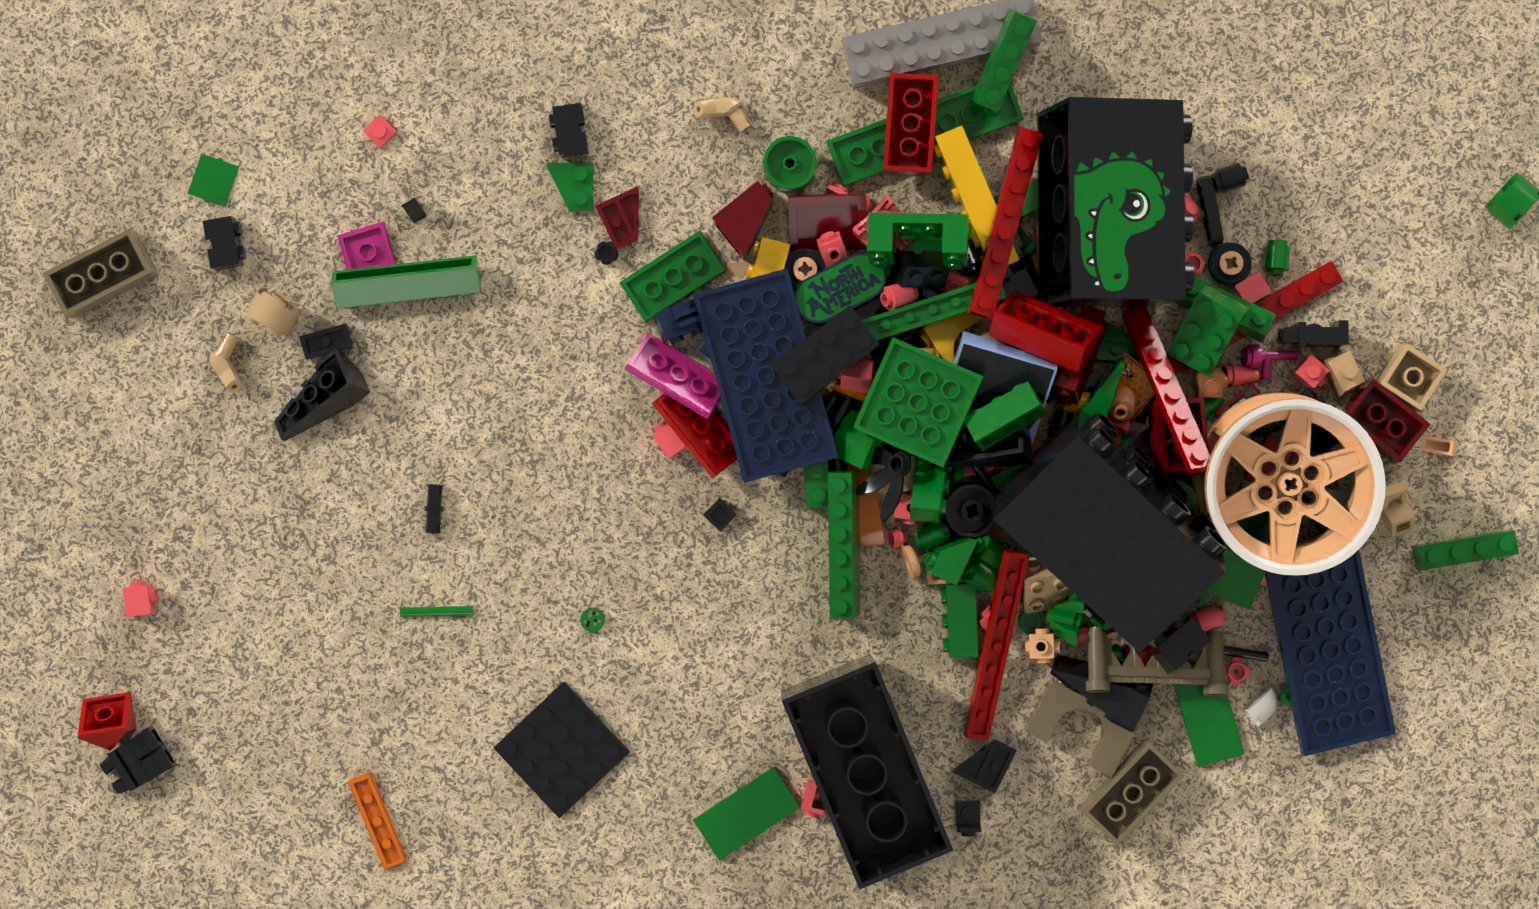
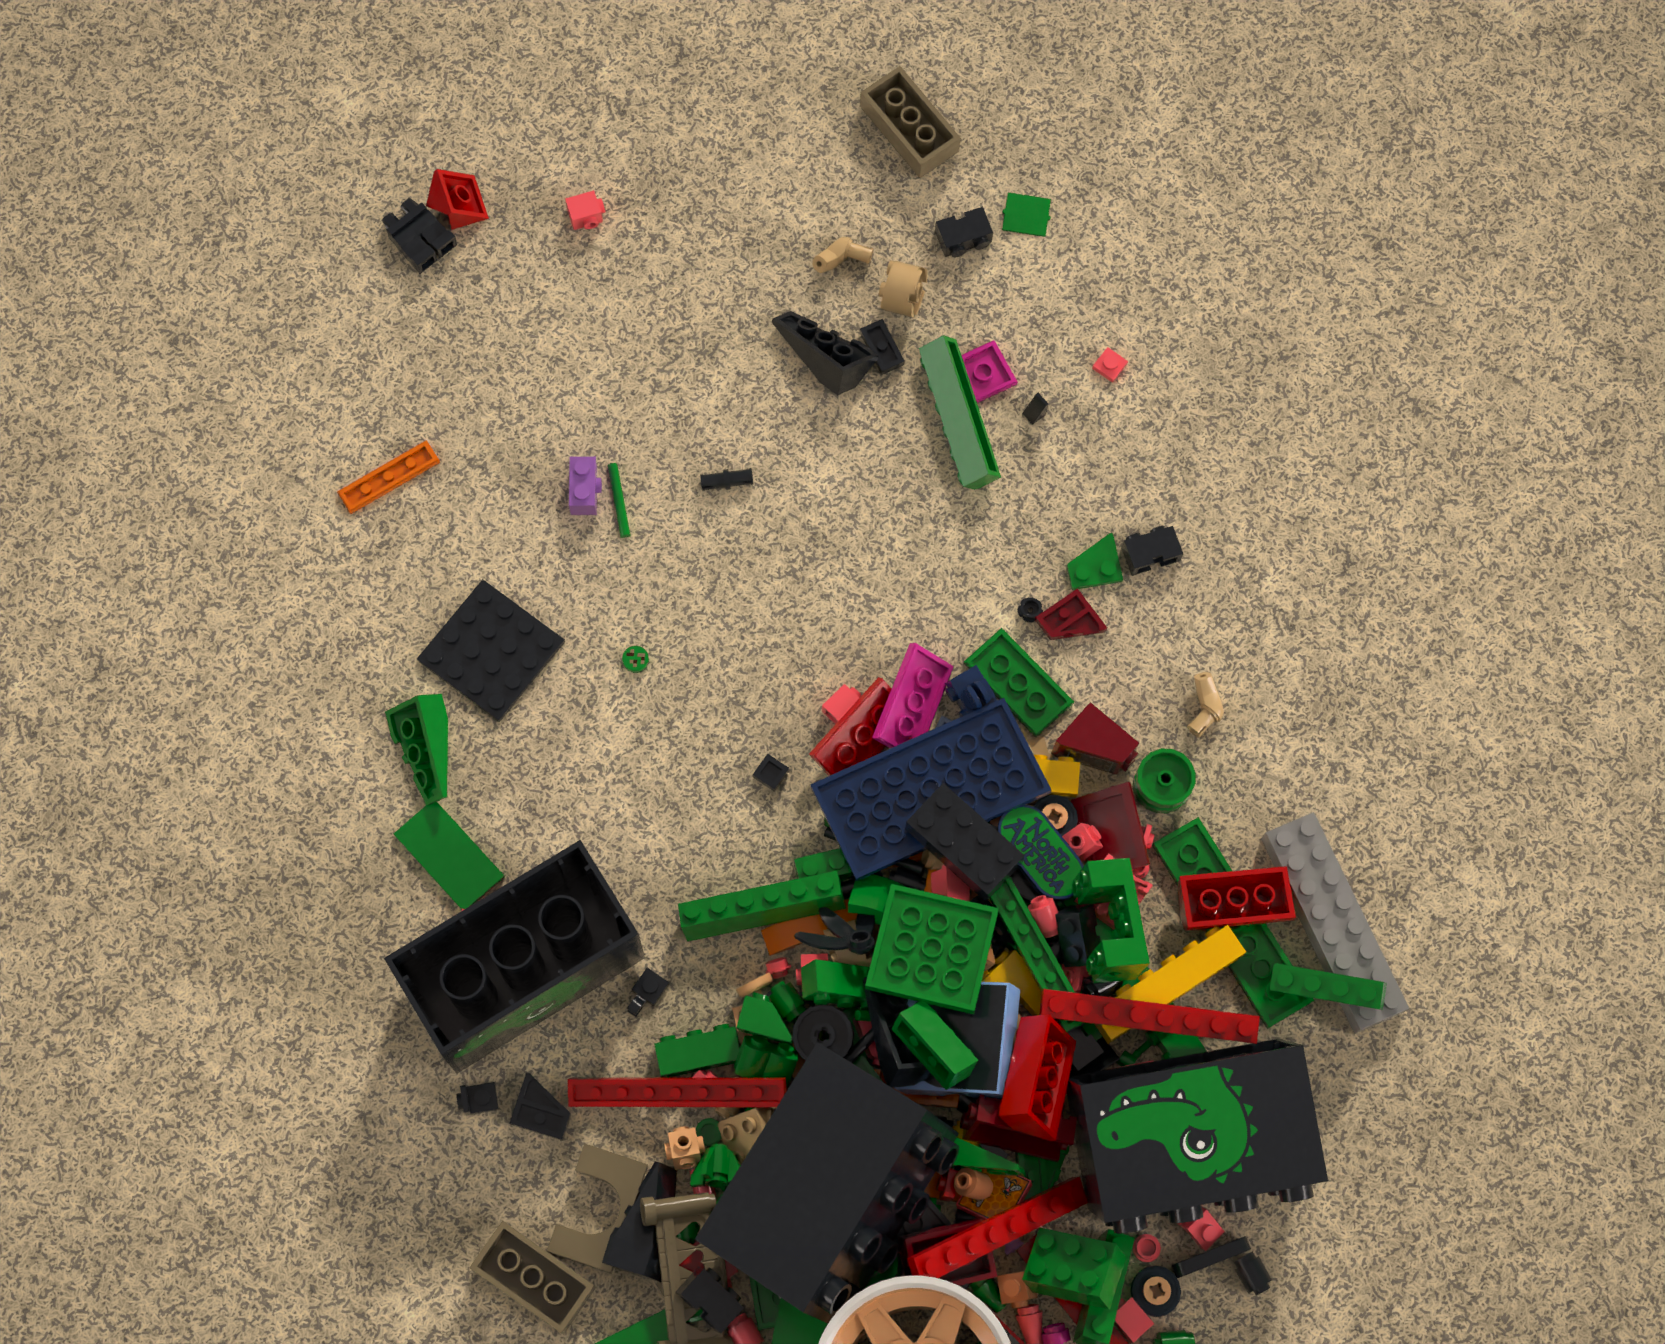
camera: 80 degrees right, 15 degrees down
(419, 642) = (583, 485): none -> medium lavender brick
(636, 821) = (423, 734): none -> green wedge
(896, 654) = (648, 989): none -> black plate

